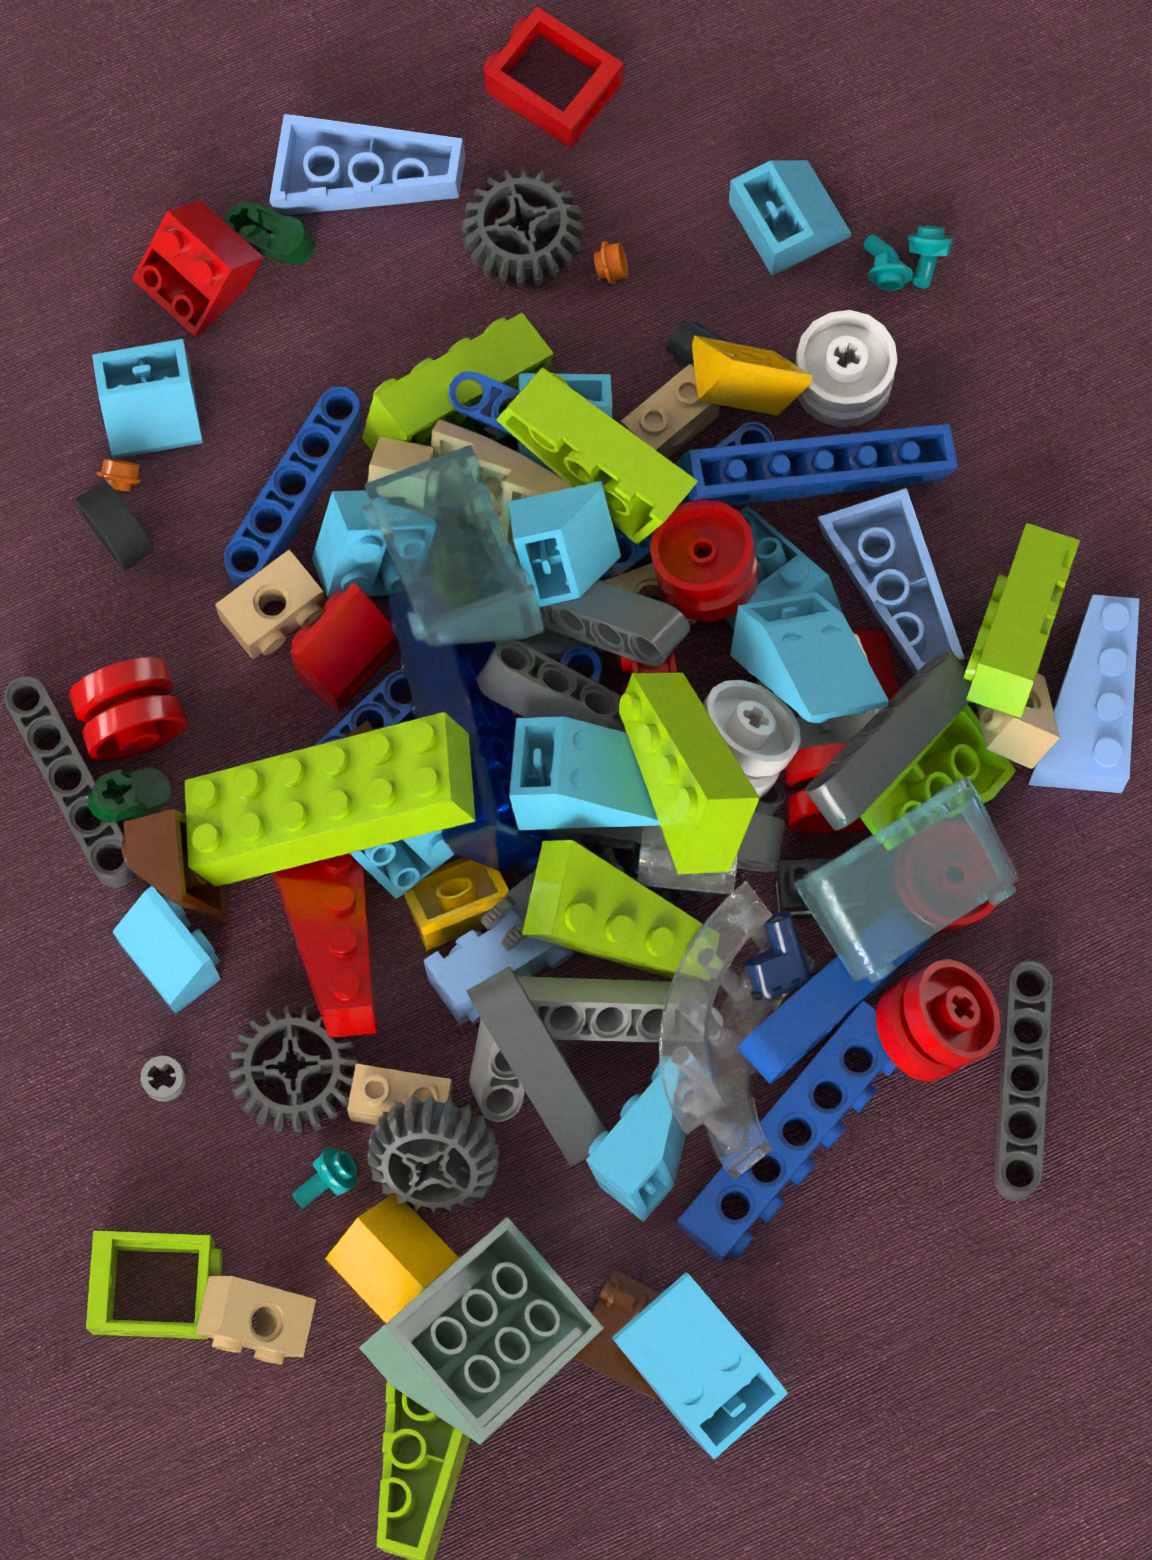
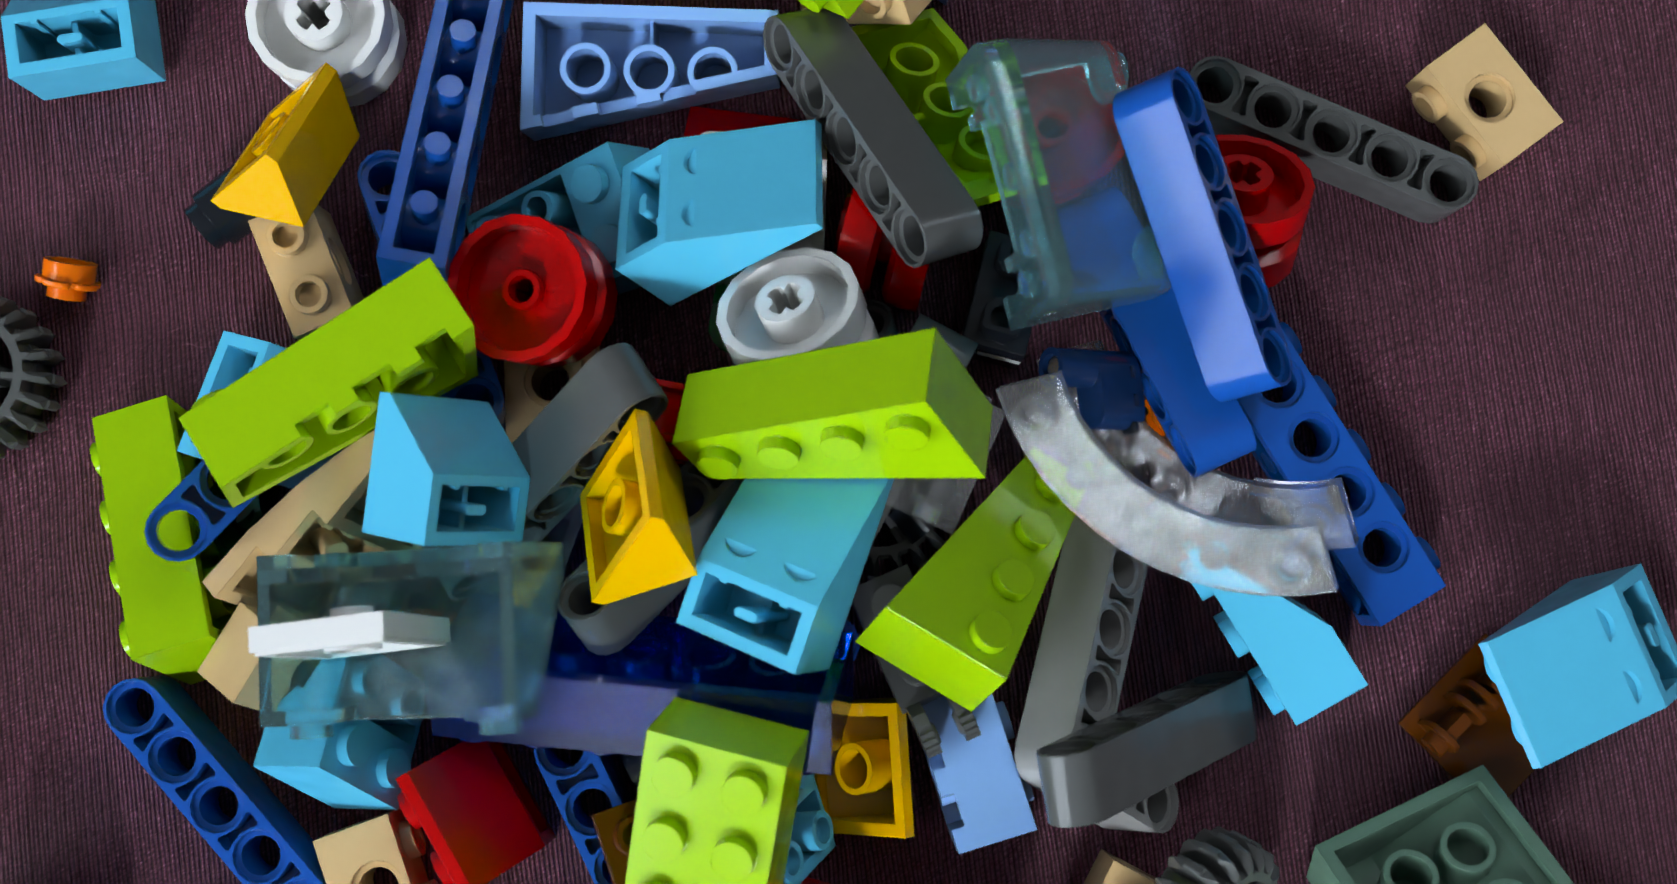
camera: 75 degrees left, 10 degrees up
(441, 518) = (349, 633): none -> white plate
(579, 672) = (636, 516): none -> yellow slope
(898, 980) = (1202, 236): none -> beam
(1116, 1169) = (1513, 104): none -> tan brick

